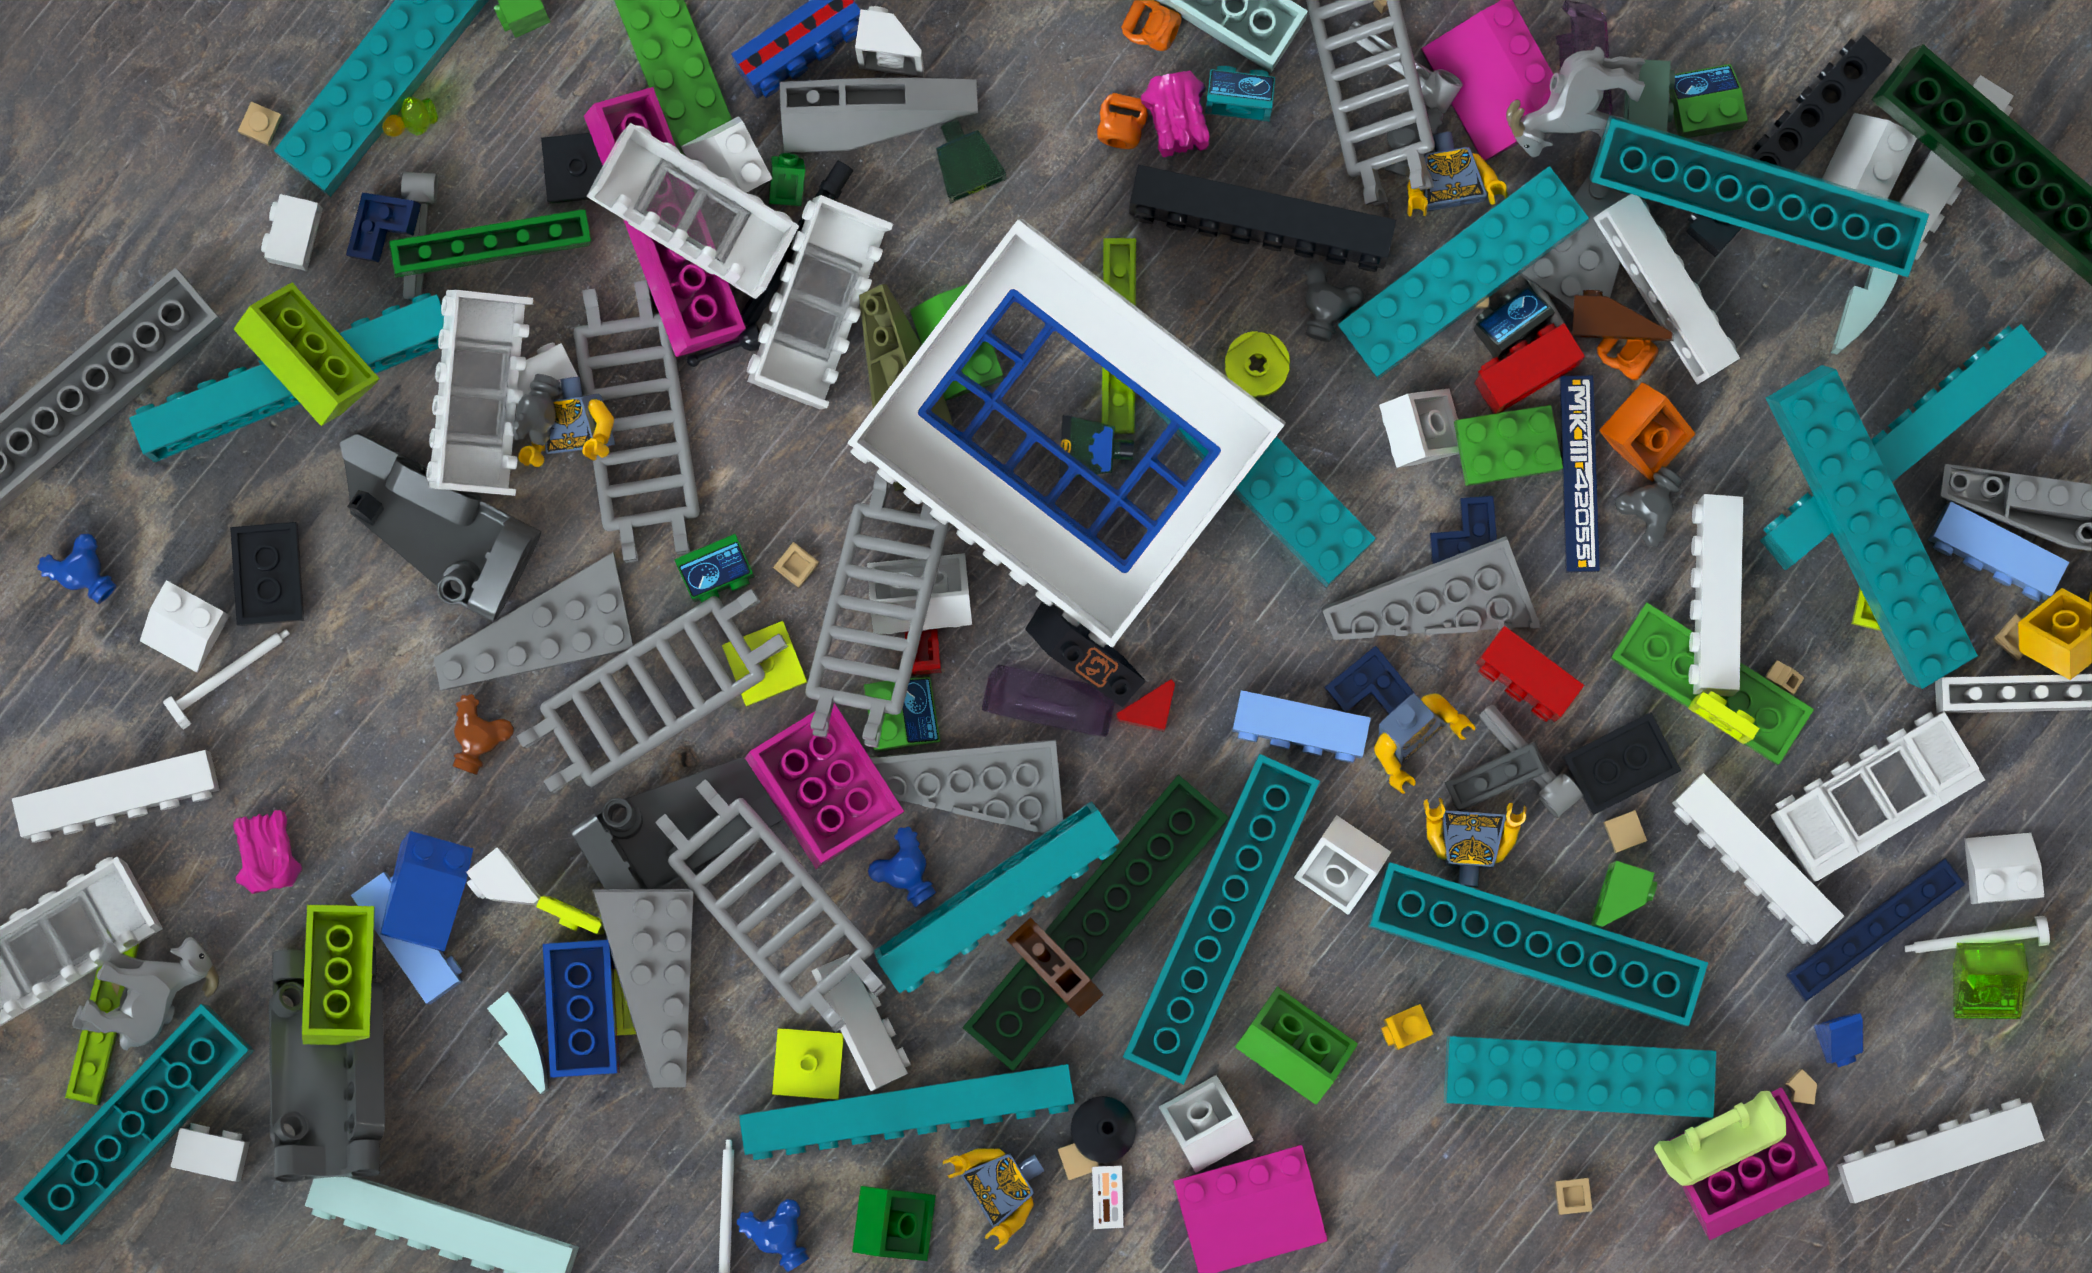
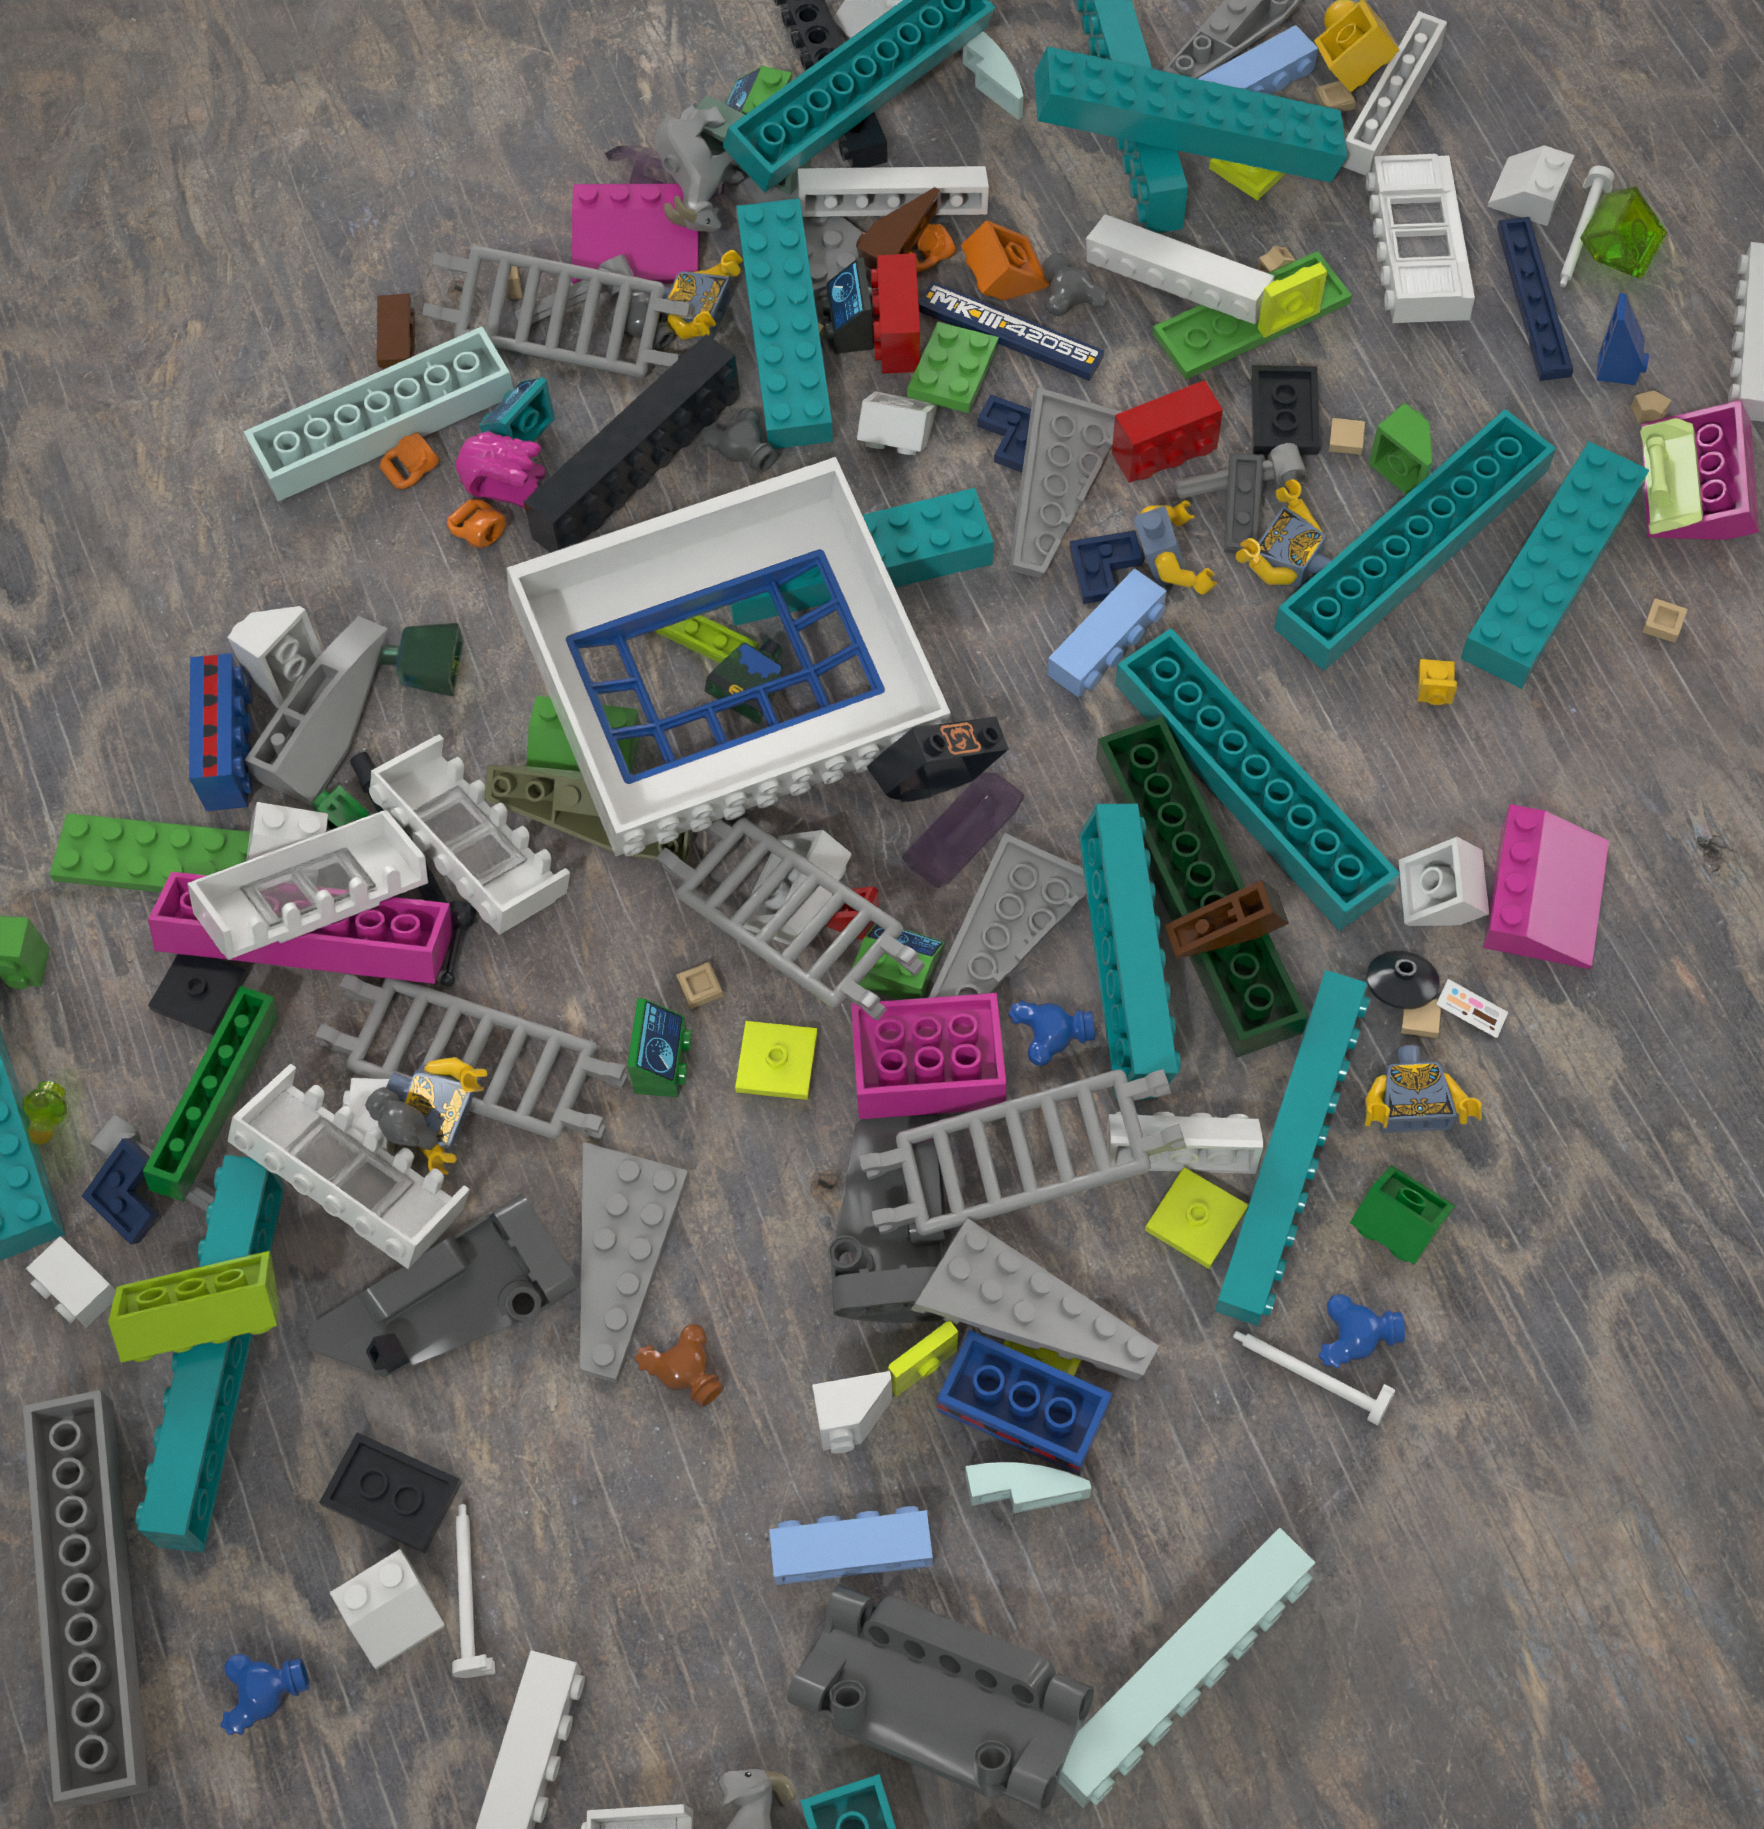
camera: 60 degrees left, 20 degrees down
(265, 853) = (676, 1643): dark pink piece -> none
(337, 974) = (852, 1628): lime slope -> none
(426, 890) = (812, 1491): blue slope -> none
(631, 657) = (696, 1173): light grey bar -> none
(1150, 710) = (1025, 744): red slope -> none
(1296, 1045) = (1409, 776): bright green slope -> none
(1342, 864) = (1256, 659): white slope -> none
(1757, 859) = (1427, 348): white brick -> none

